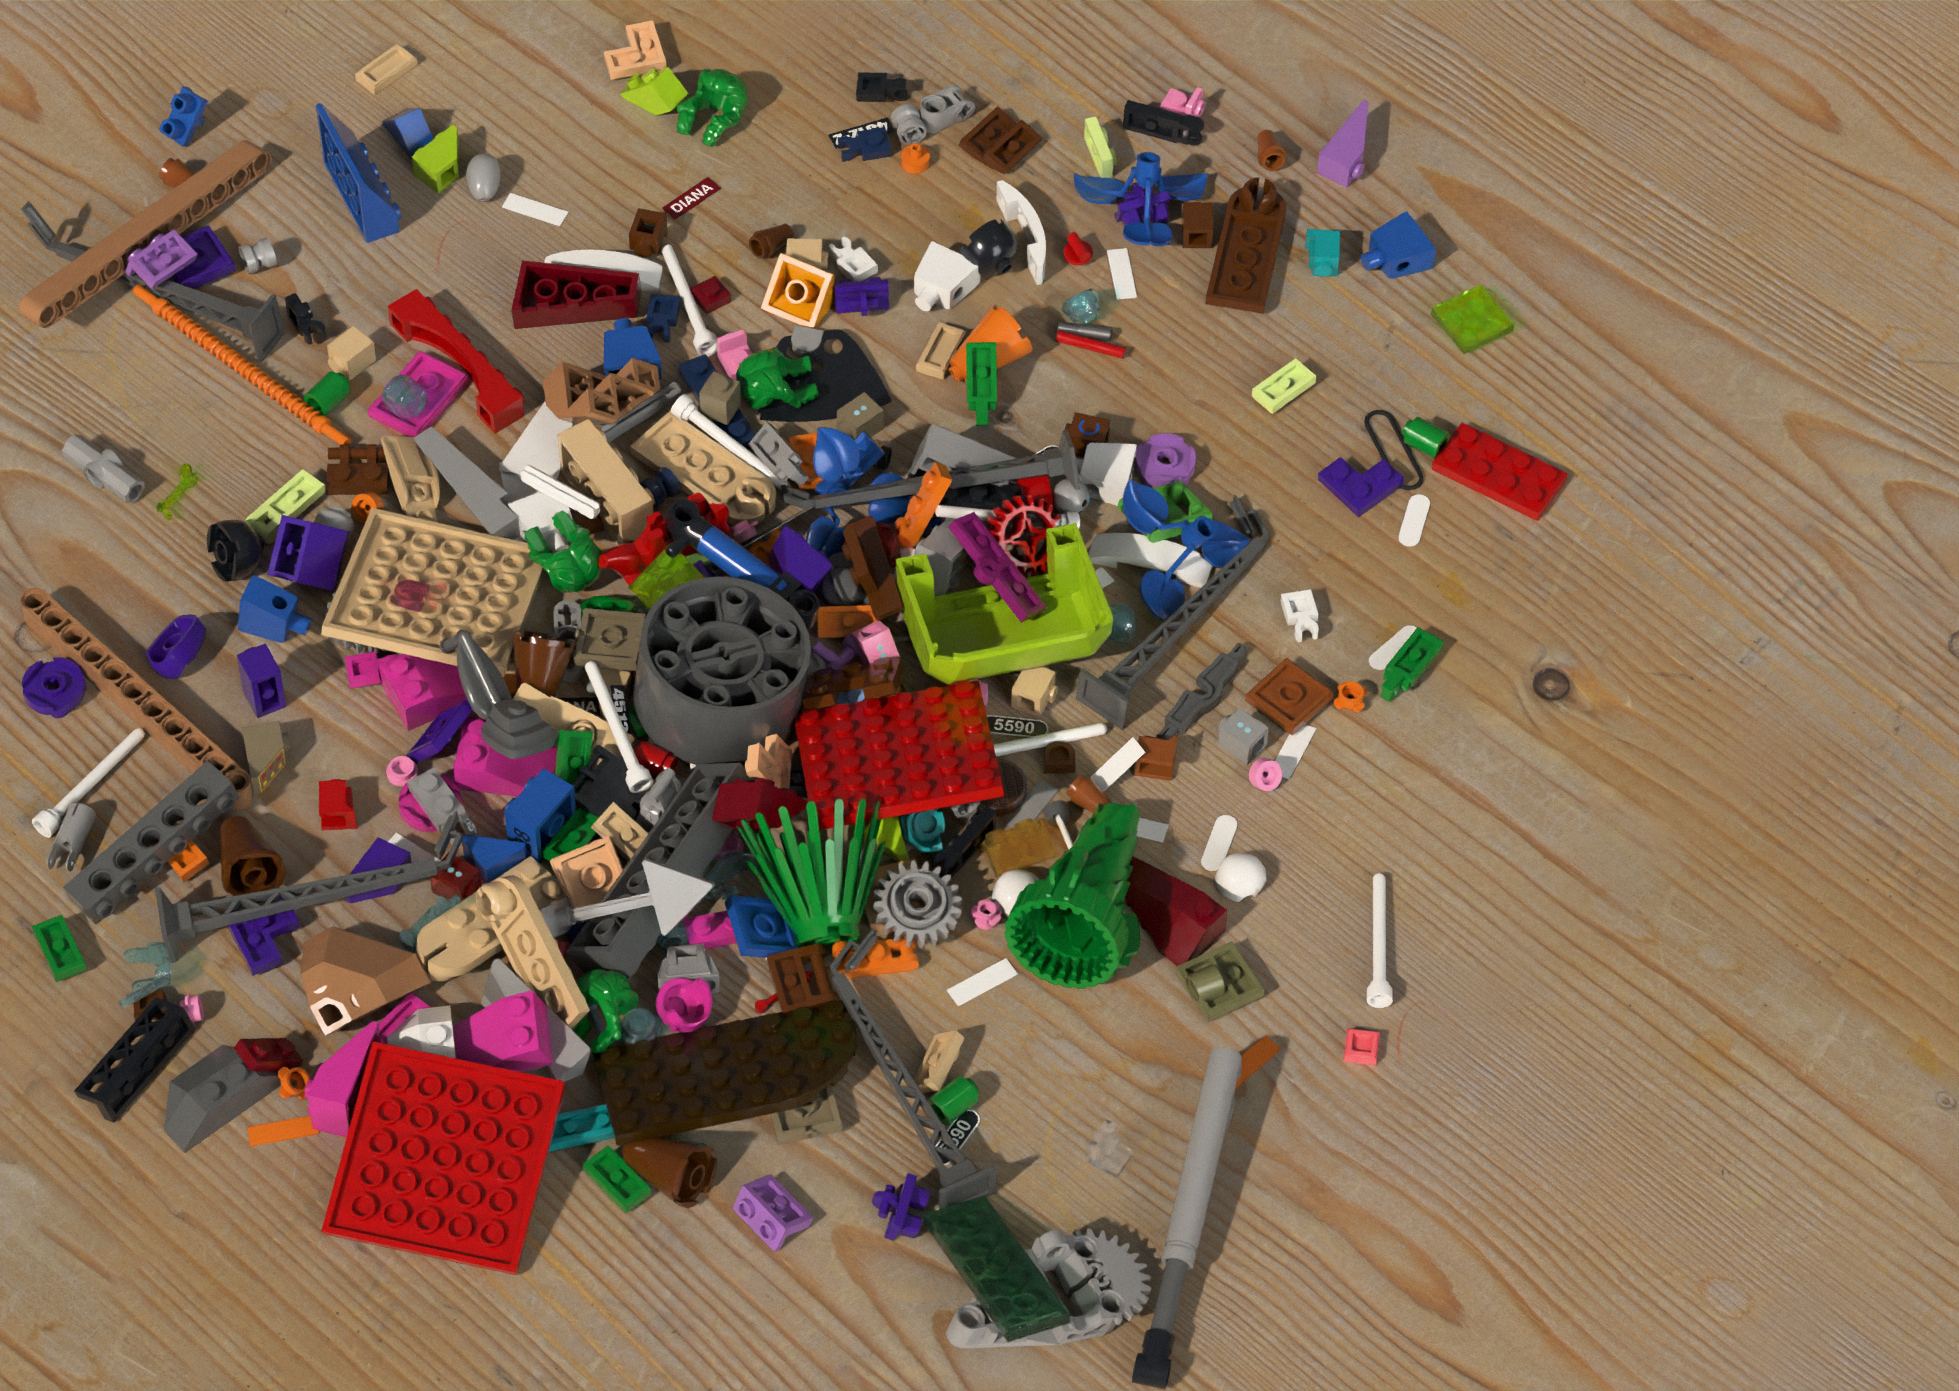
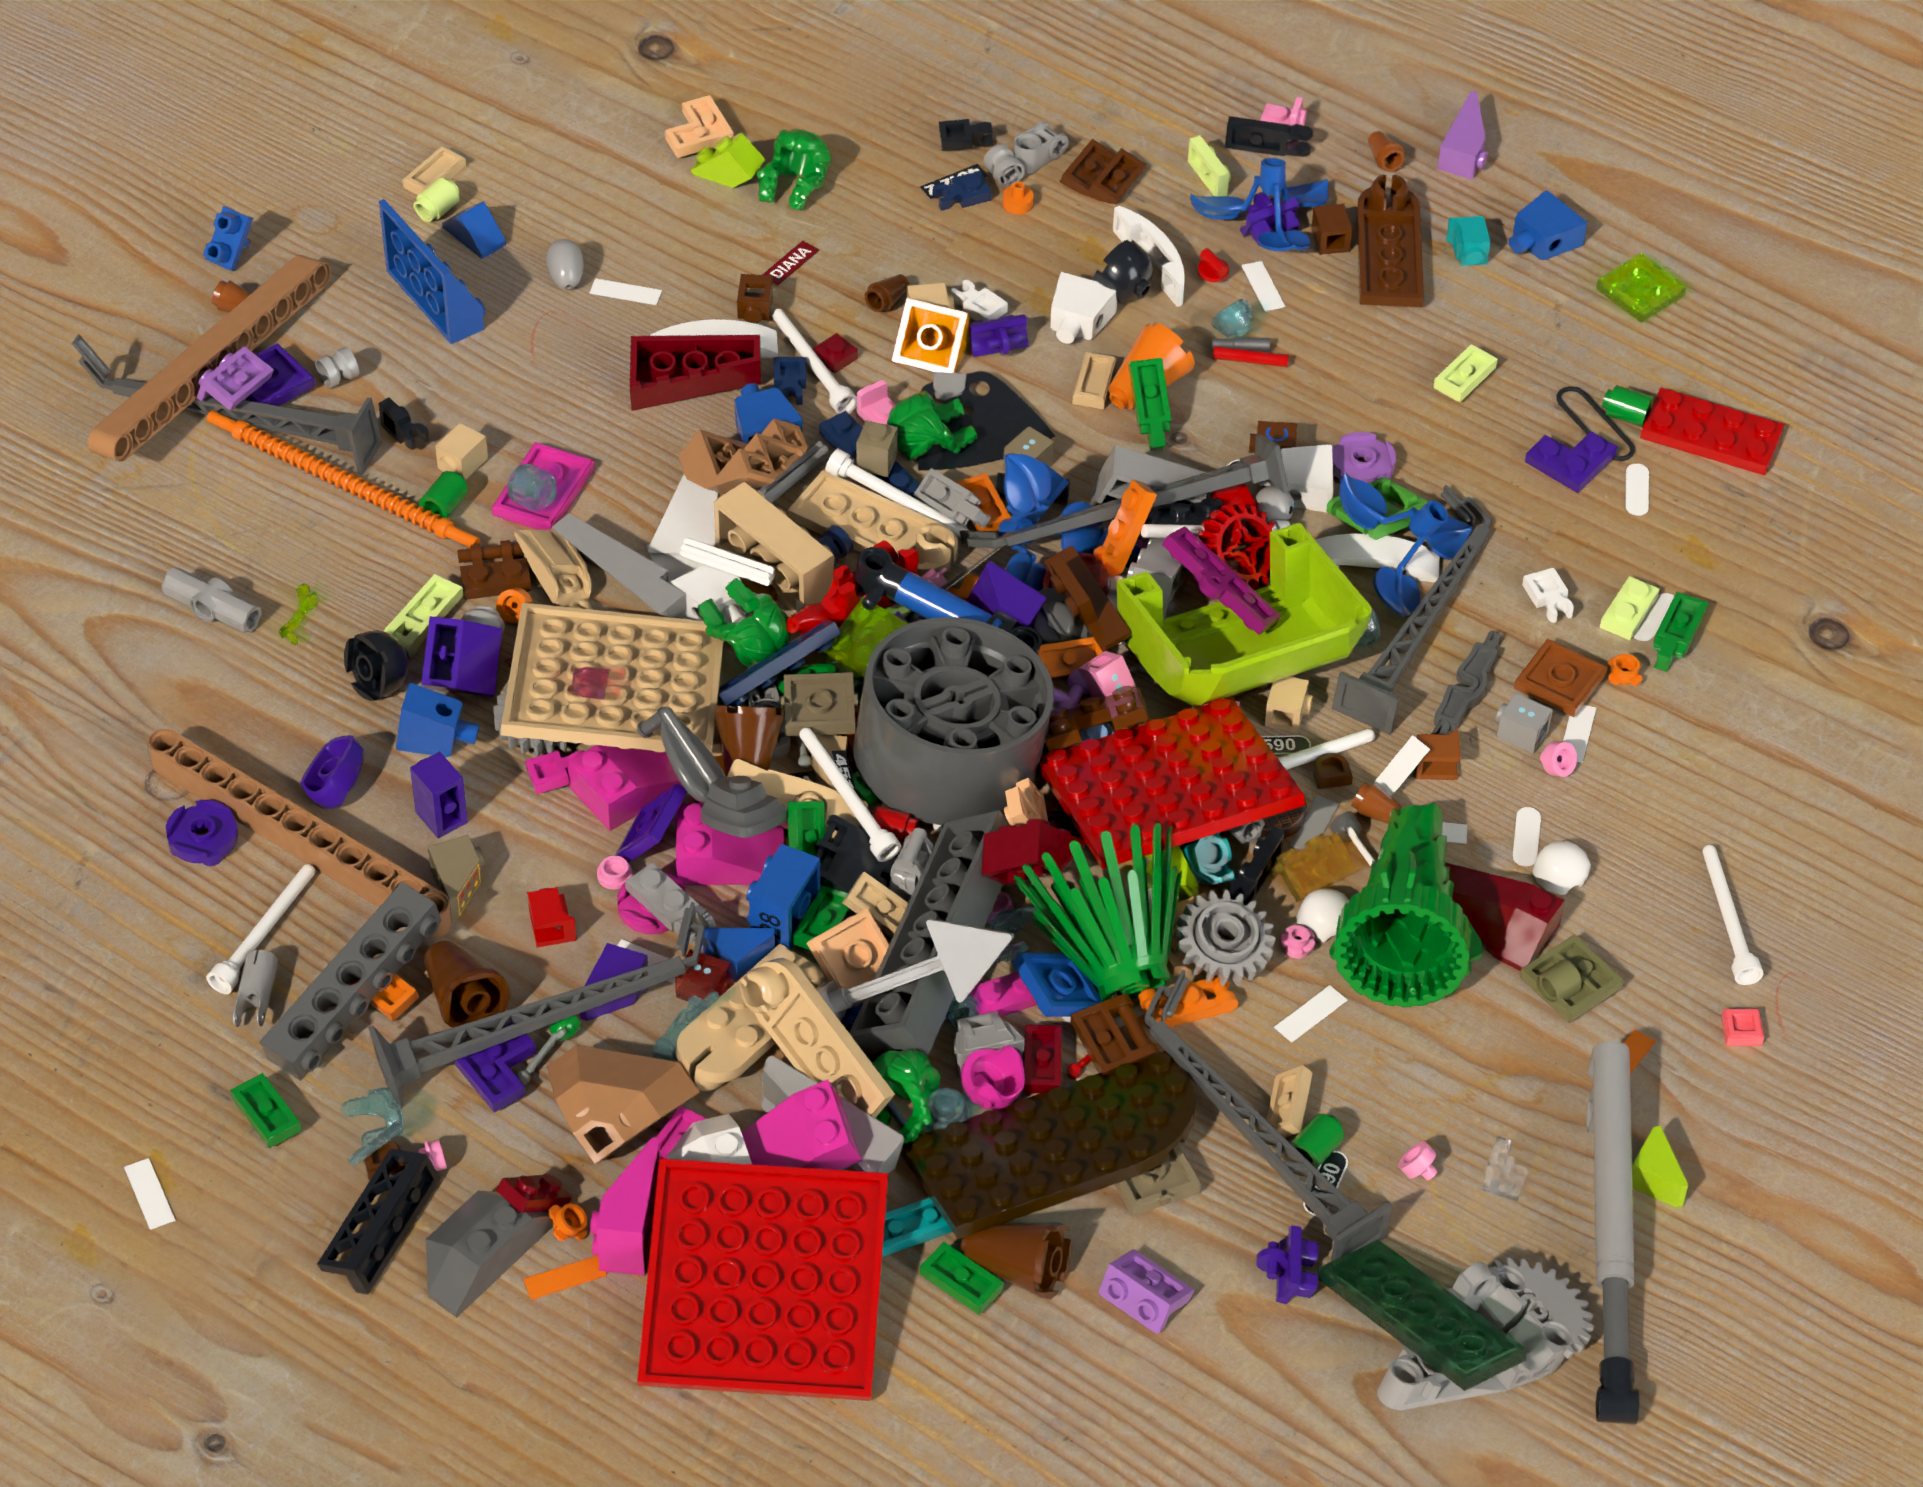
camera: 10 degrees left, 5 degrees down
(323, 910) = (560, 1030): none -> hinge
(381, 97) = (436, 199): none -> yellowish green brick
(419, 320) = (530, 412): red arch -> none
(438, 161) = (512, 253): lime slope -> none
(594, 590) = (789, 656): none -> dark blue plate
(734, 991) = (1042, 1058): none -> dark red plate
(1037, 1130) = (1418, 1161): none -> bright pink tile
(1243, 1167) = (1658, 1172): none -> lime slope
(1372, 636) = (1629, 608): none -> yellowish green plate

